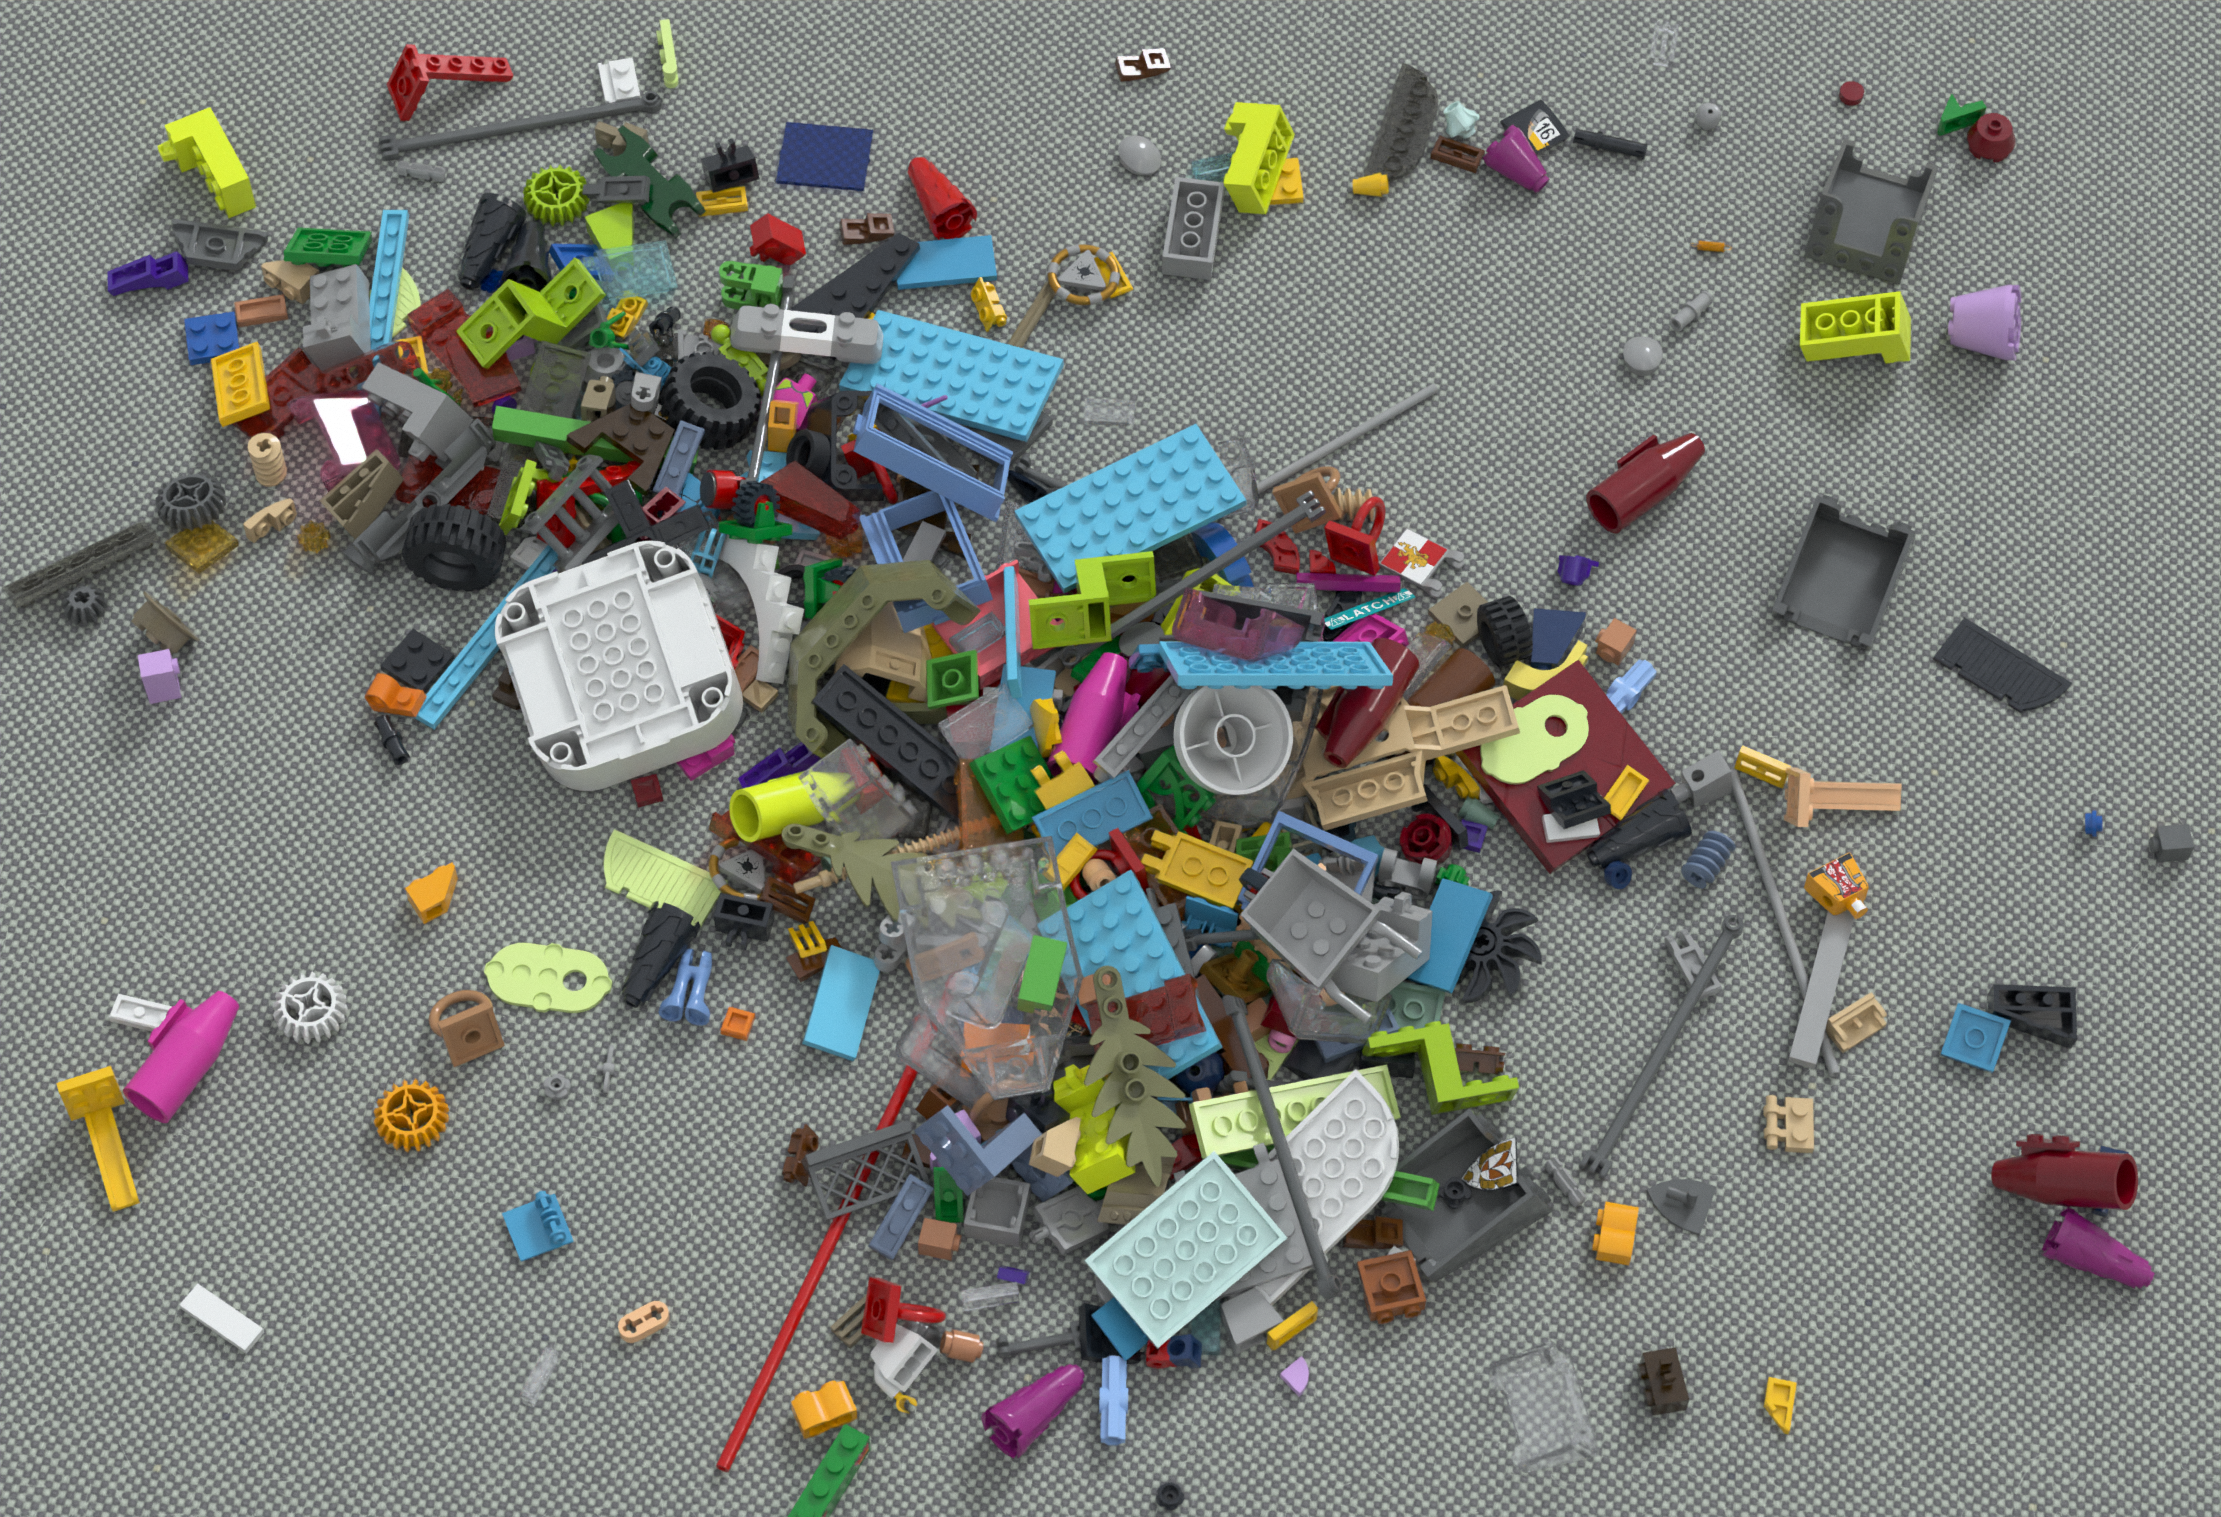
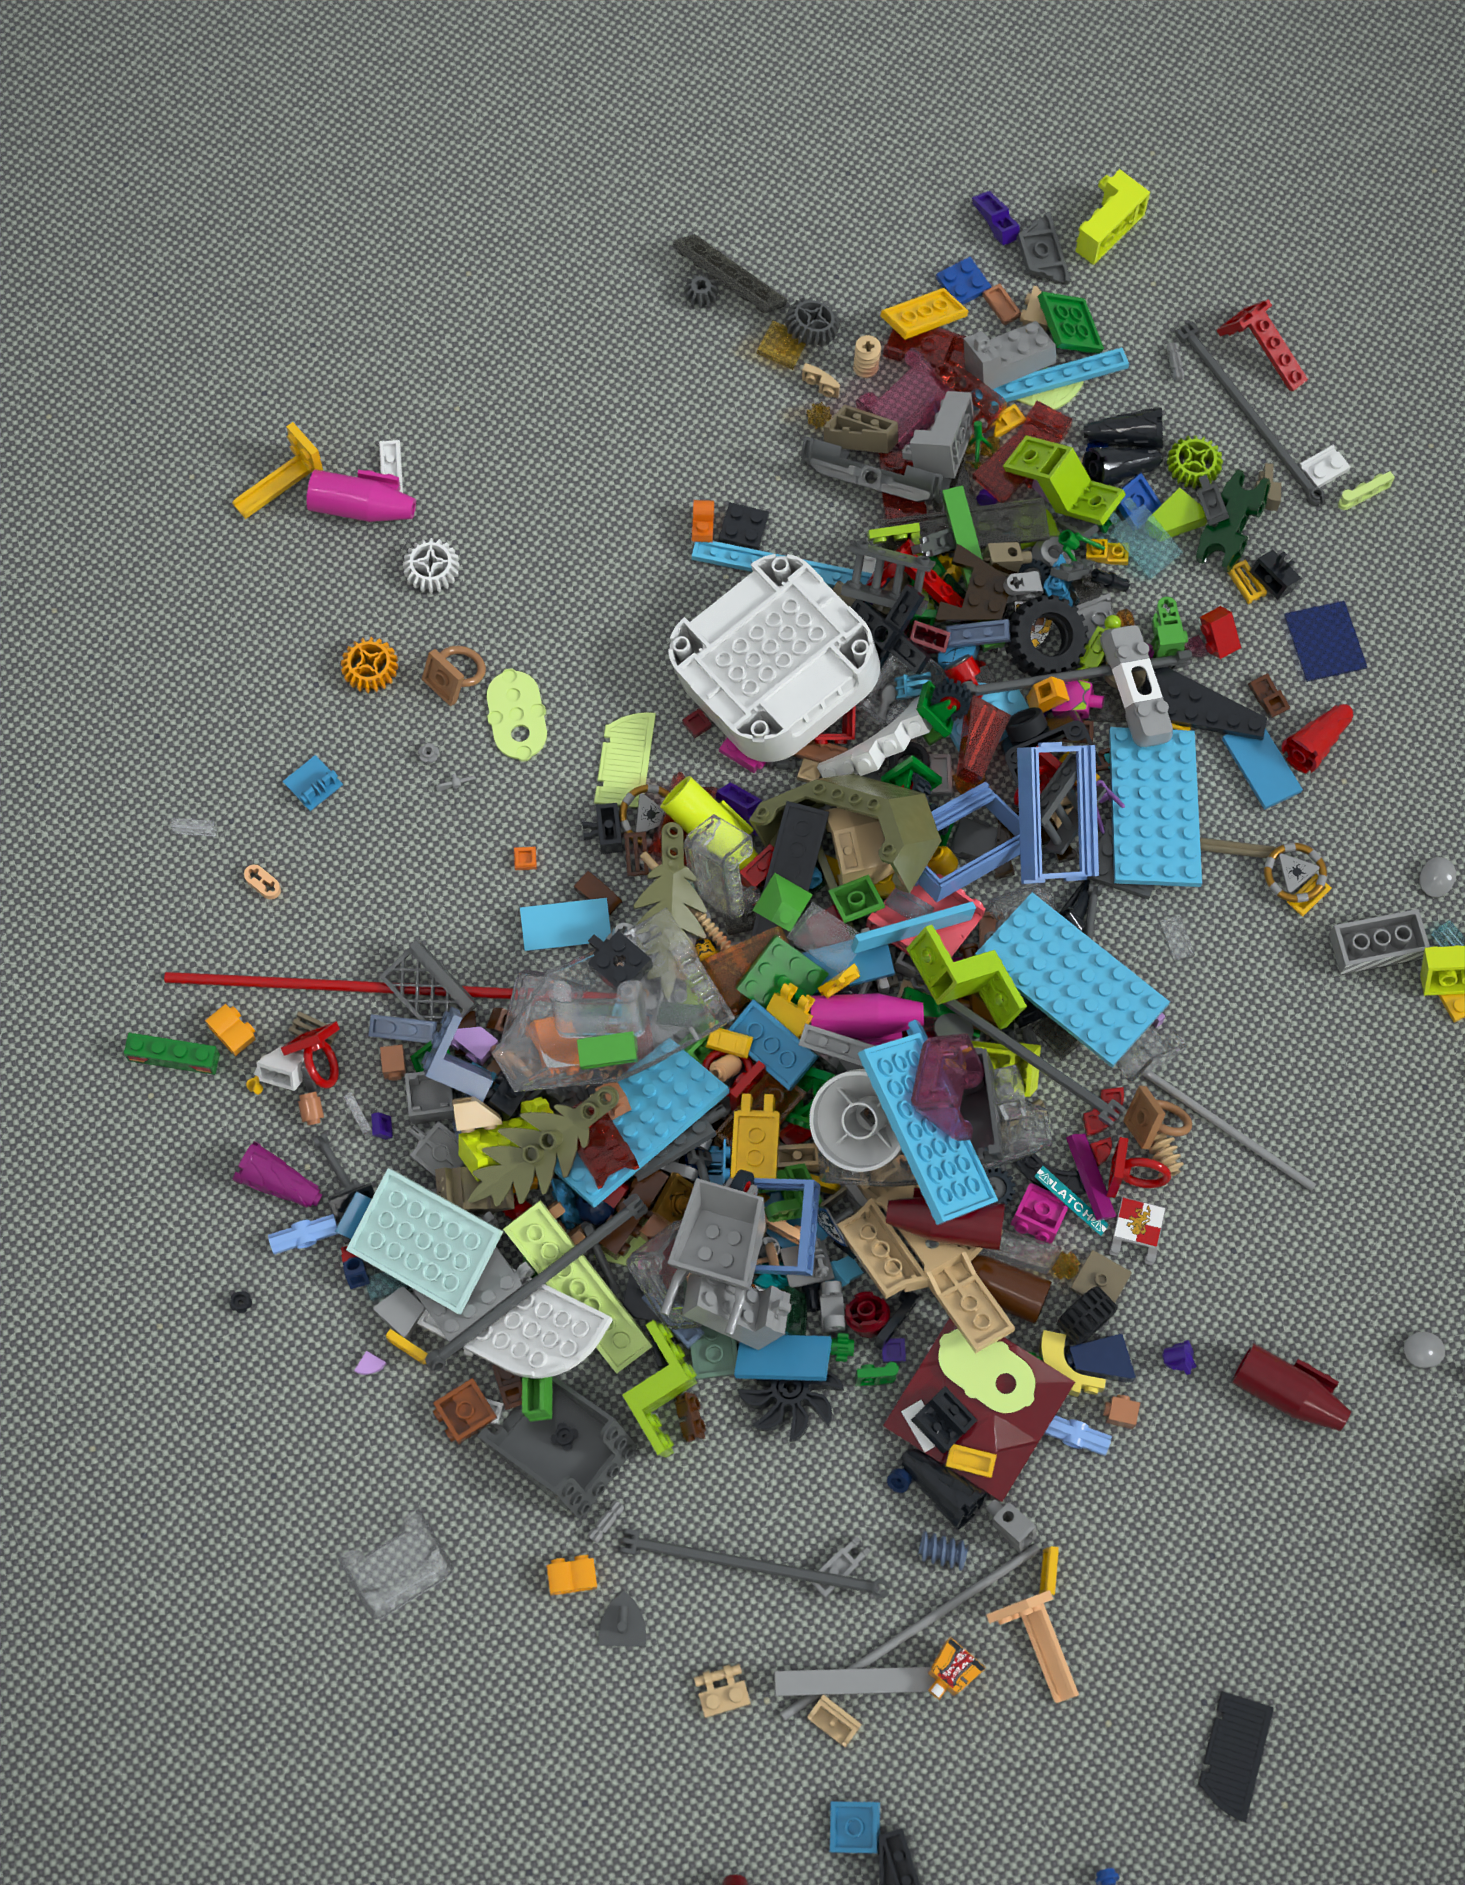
camera: 70 degrees right, 10 degrees up
(160, 676) = (656, 360): lavender brick -> none
(162, 625) = (700, 345): dark tan piece -> none
(221, 1318) = (175, 605): white tile -> none
(391, 739) = (670, 533): black pin -> none
(433, 893) = (553, 611): light orange slope -> none
(454, 547) = (834, 507): black tyre -> none
(661, 943) = (562, 778): black cone -> none
(696, 1010) = (523, 822): medium blue piece -> none
(801, 1143) = (438, 941): reddish brown hinge -> none
(804, 932) = (593, 882): yellow tile -> none
(925, 543) = (982, 840): light grey tile -> none
(925, 755) = (782, 902): none -> bright green slope
(939, 943) = (616, 950): none -> black hinge
(984, 297) = (1229, 815): yellow hinge -> none
(1214, 541) = (1072, 1065): blue arch -> none
(1309, 848) = (829, 1220): none -> shield
(1454, 775) = (933, 1330): yellow slope -> none
(1477, 812) = (914, 1349): sand green cone -> none
(1494, 1168) = (589, 1459): shield -> none
(1497, 853) = (872, 1376): none -> green plate
(1663, 1381) = (453, 1652): dark brown brick -> none
(1780, 1401) = (470, 1753): yellow tile -> none
(1843, 574) = (1268, 1587): dark grey windscreen -> none

